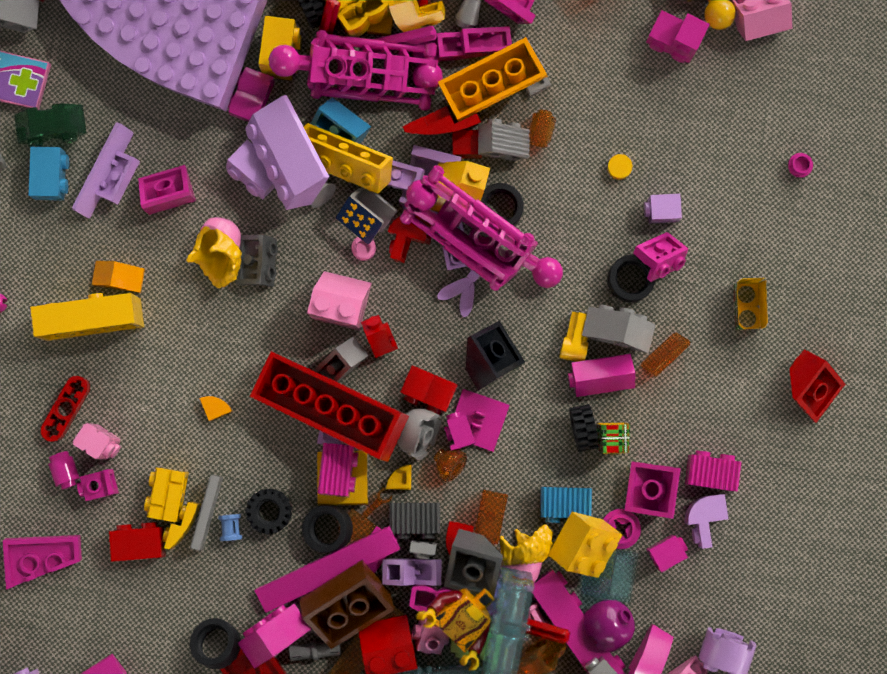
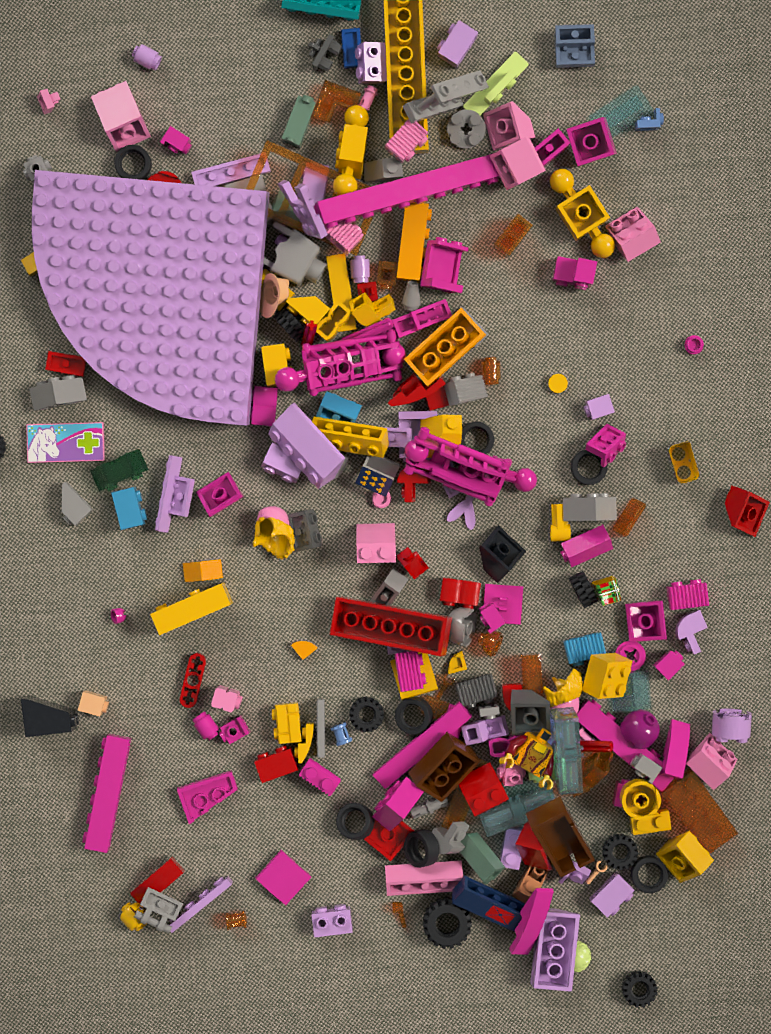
camera: 15 degrees left, 5 degrees up
(187, 574) = (319, 777): none -> dark pink brick

